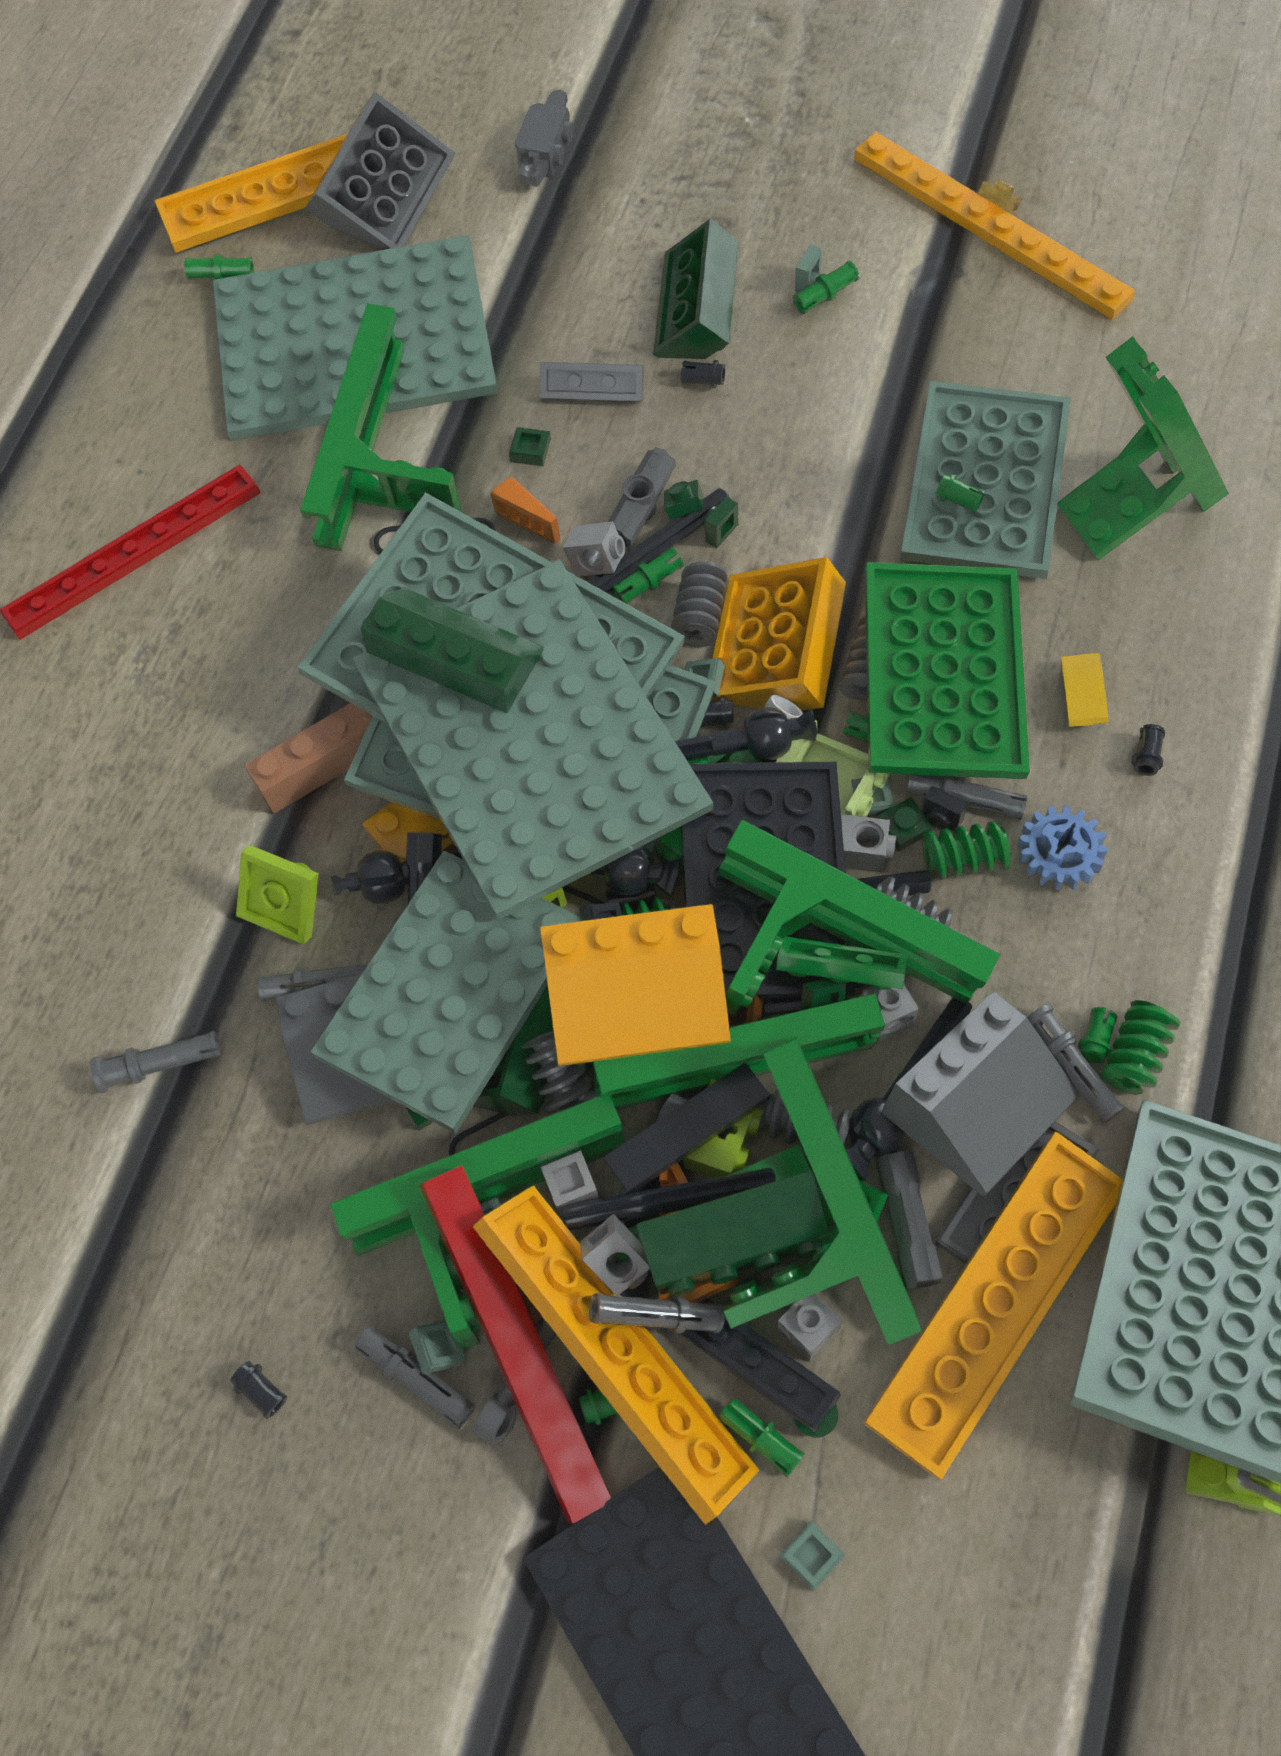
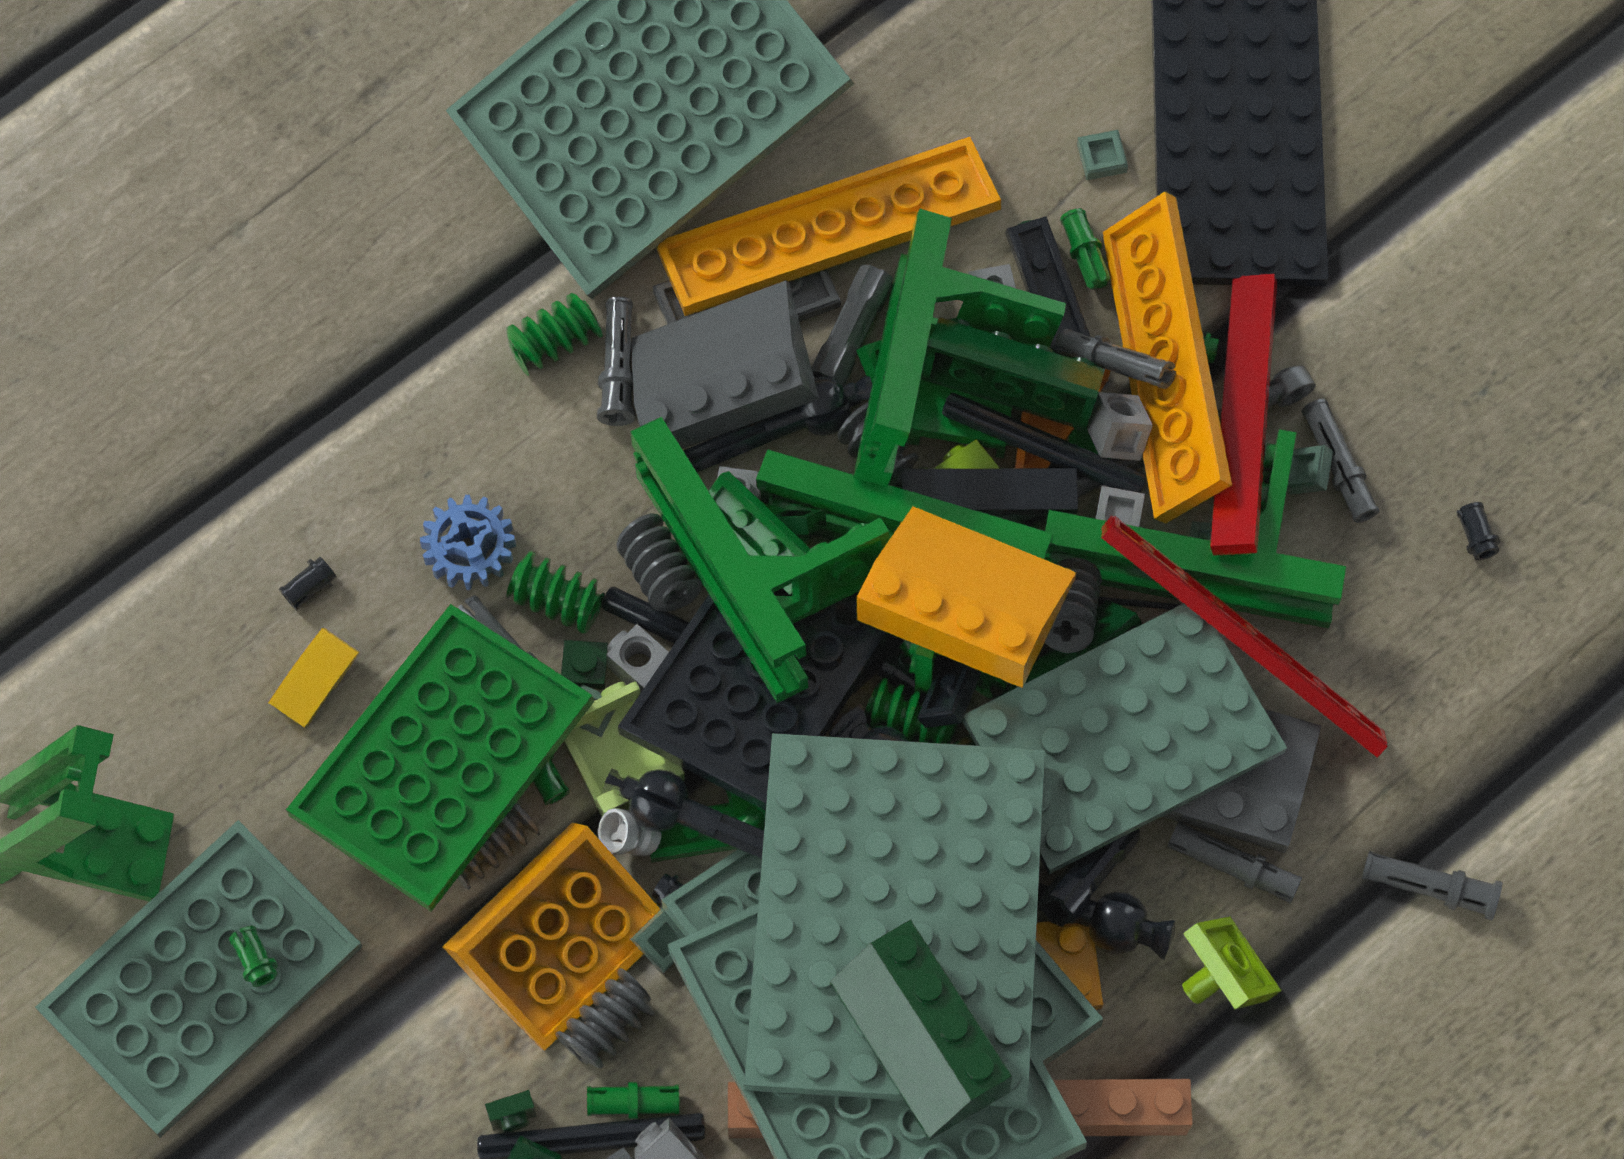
camera: 155 degrees left, 5 degrees up
(403, 1127) = (1244, 635): none -> red tile
(944, 809) = (543, 643): black plate -> none
(1095, 1044) = (577, 370): green pin -> none

